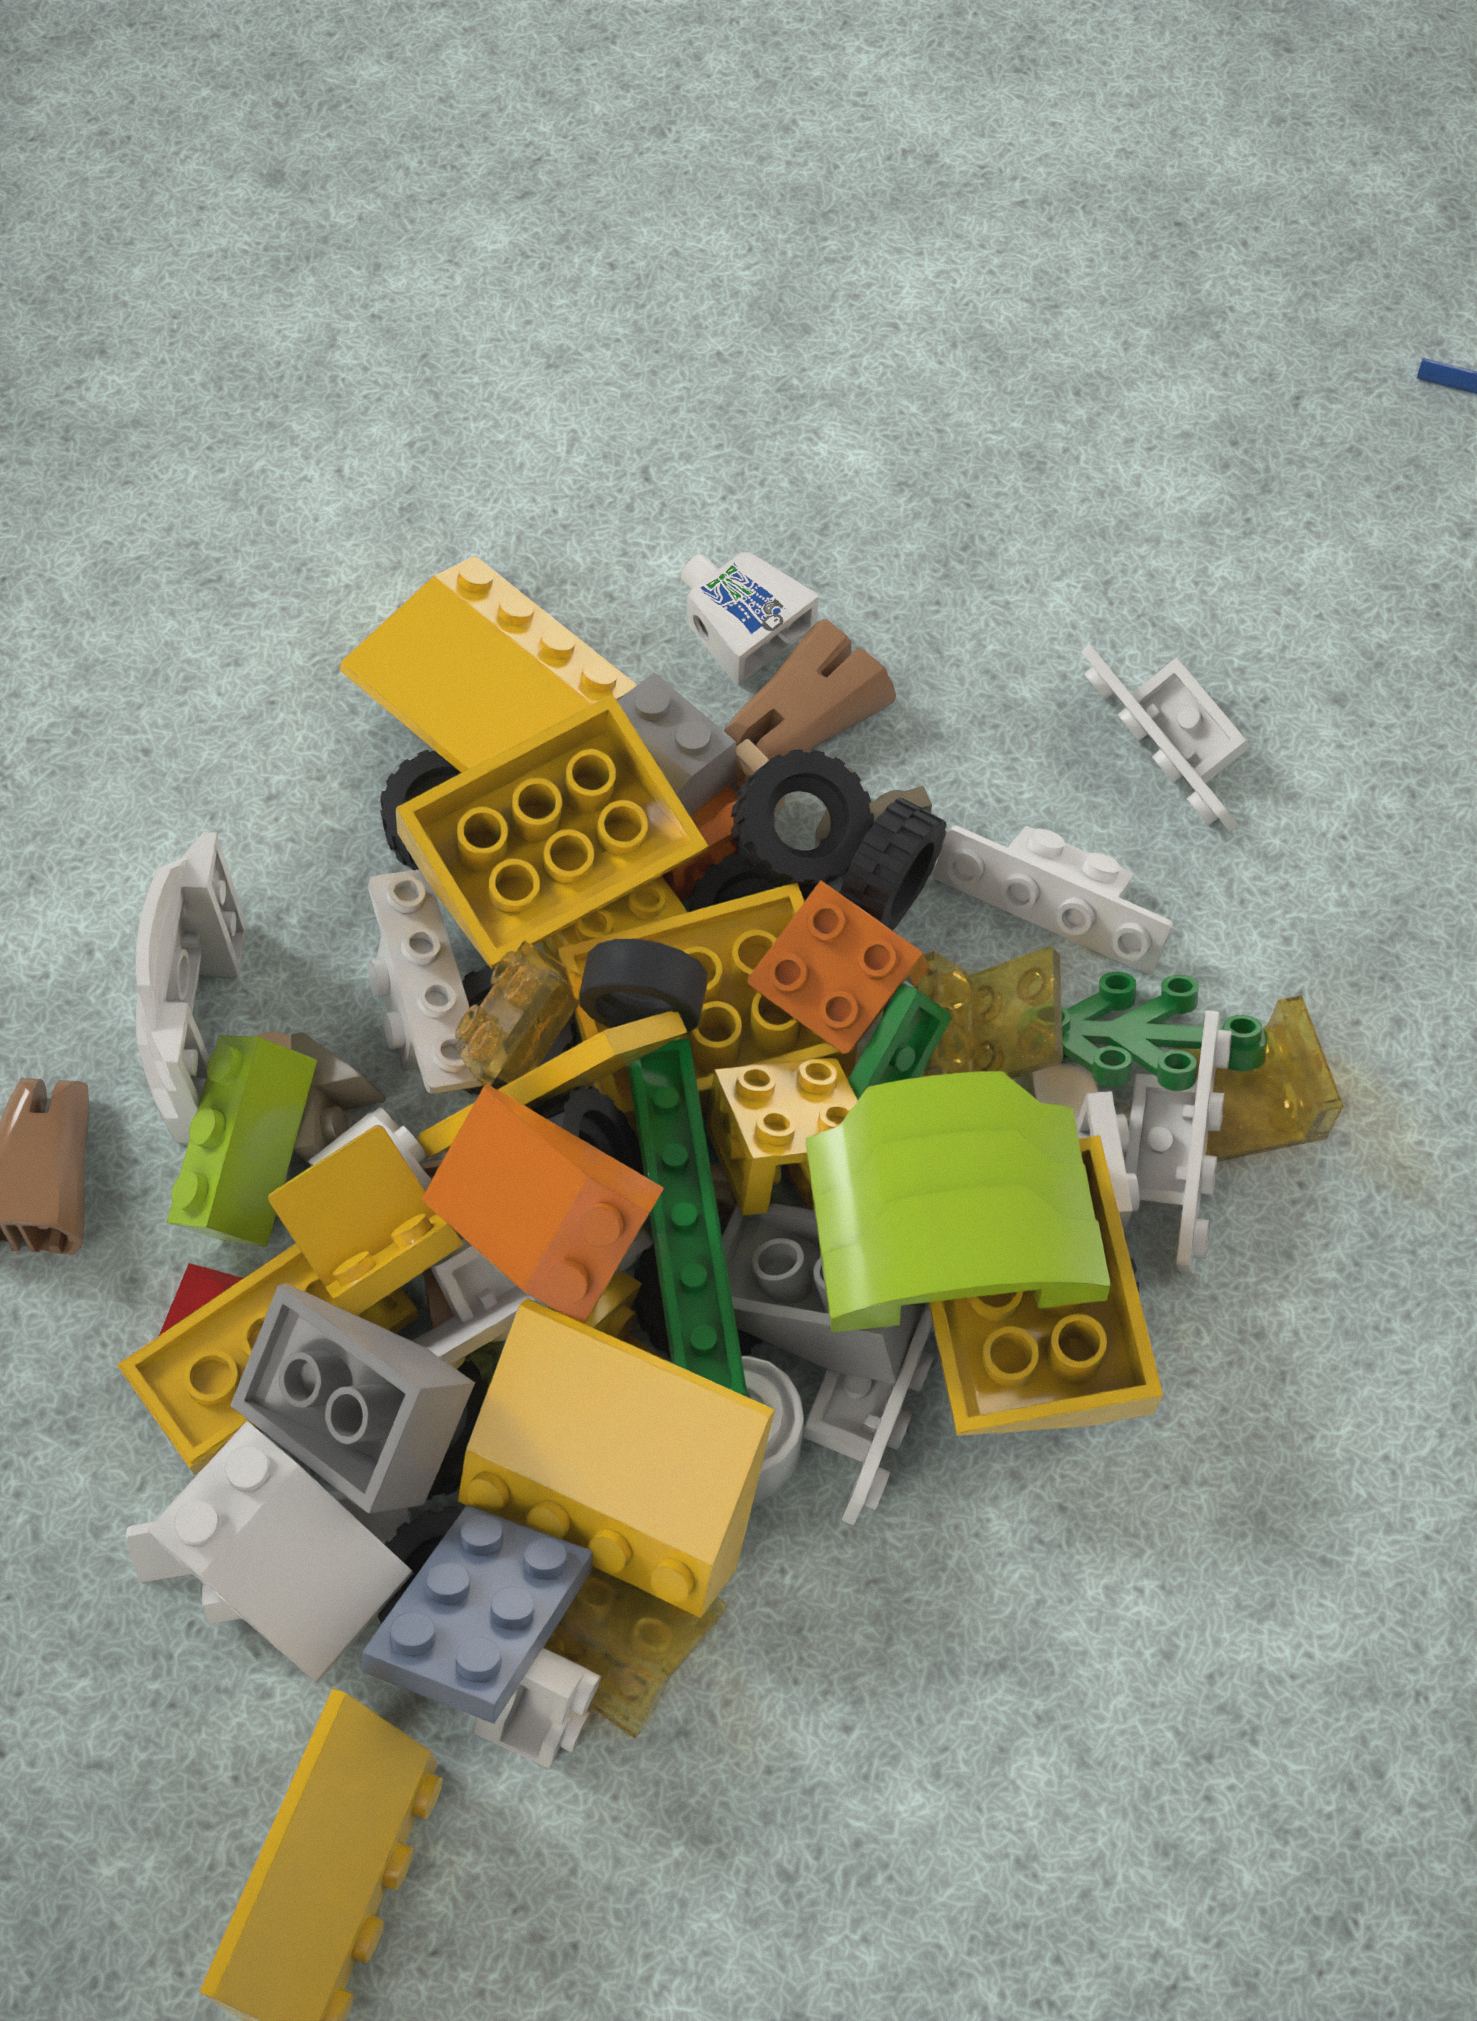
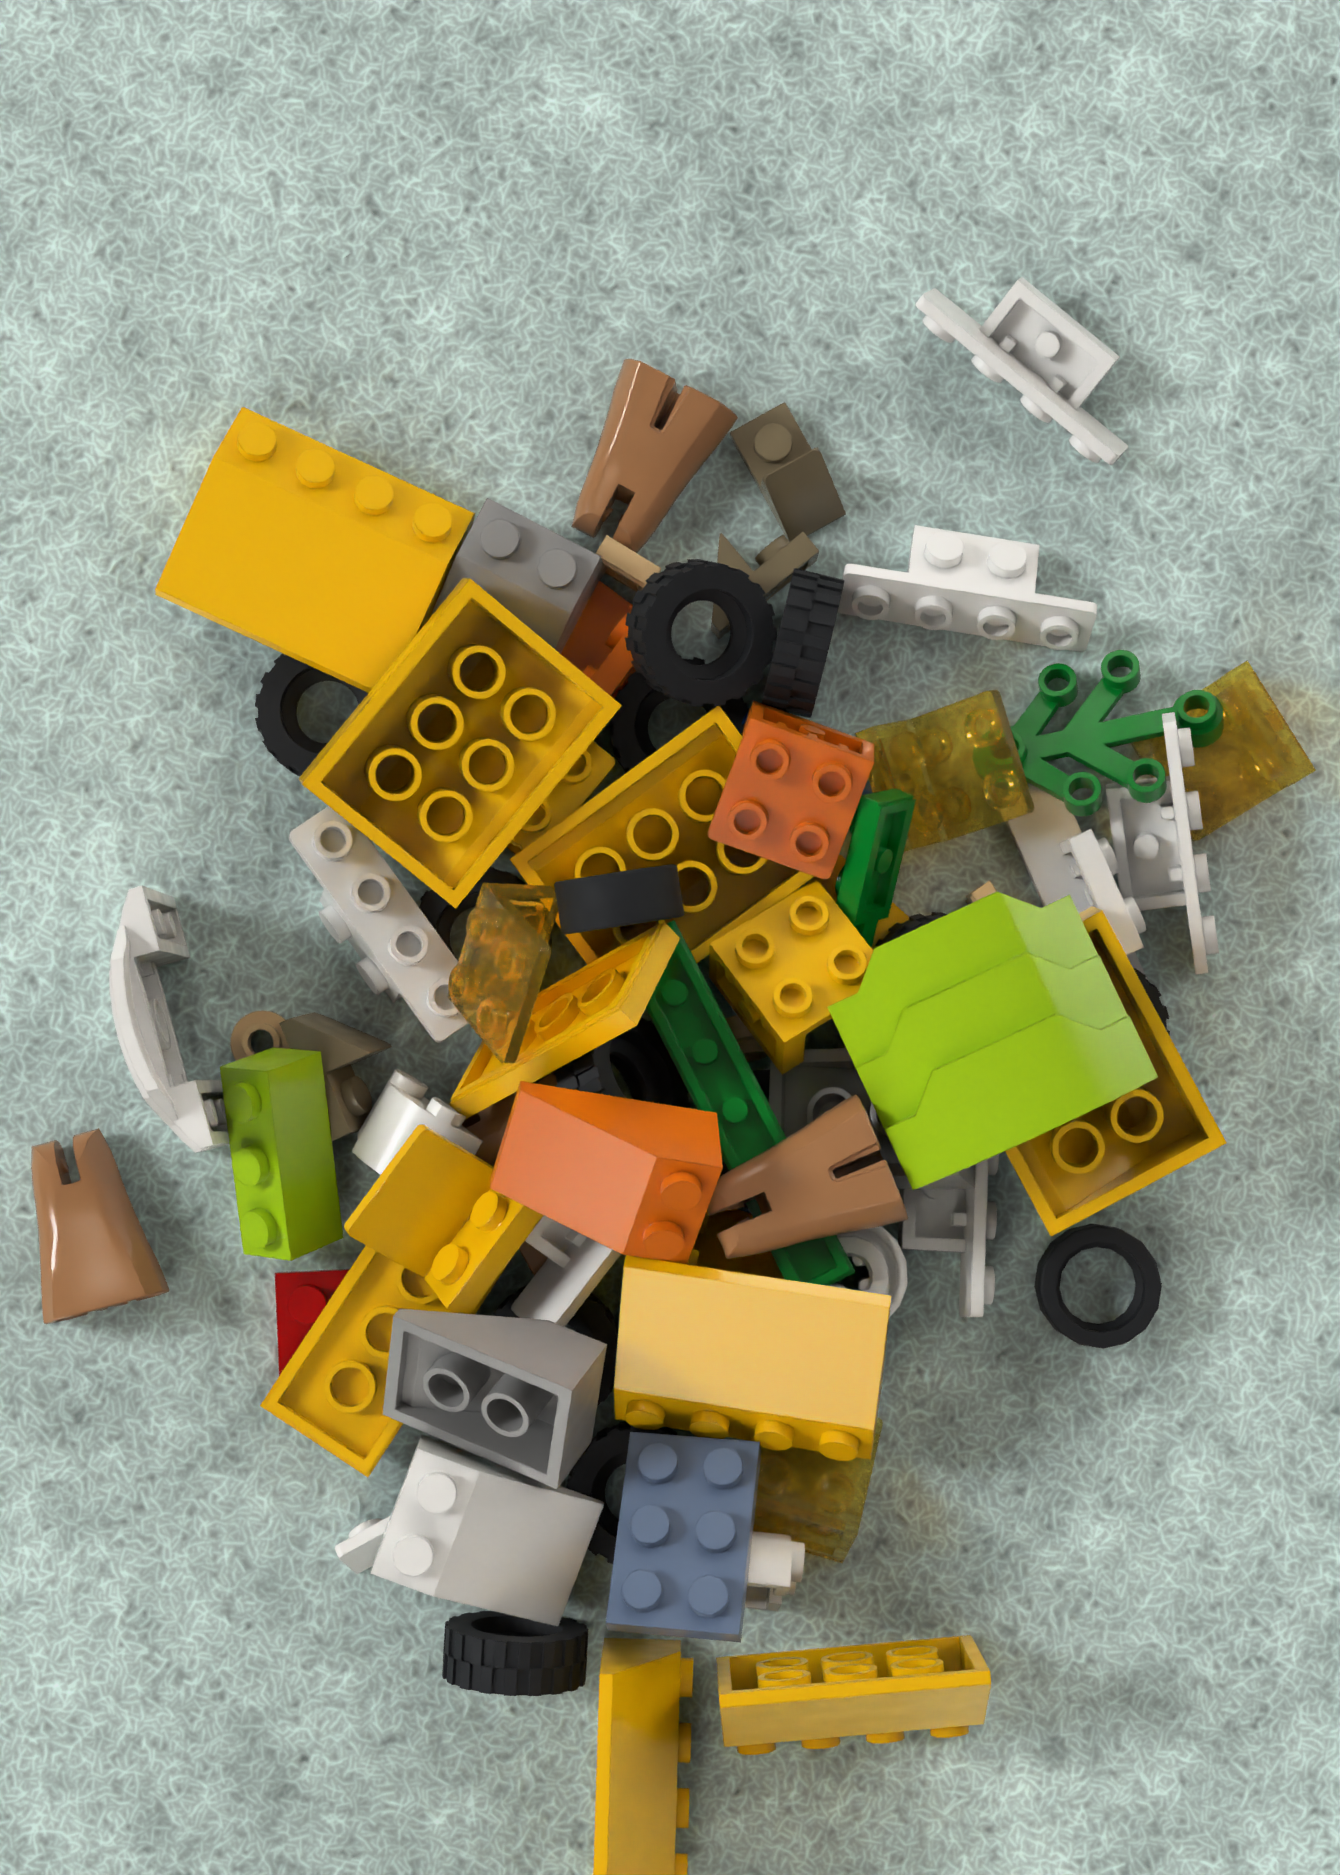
camera: 15 degrees left, 25 degrees up
(254, 1687) = (514, 1654): none -> black tyre
(589, 1858) = (851, 1693): none -> yellow slope
(728, 1292) = (811, 1185): none -> medium nougat piece
(746, 611) = (544, 362): white torso -> none
(928, 752) = (788, 472): none -> dark tan slope
(1015, 1490) = (1146, 1292): none -> black tyre

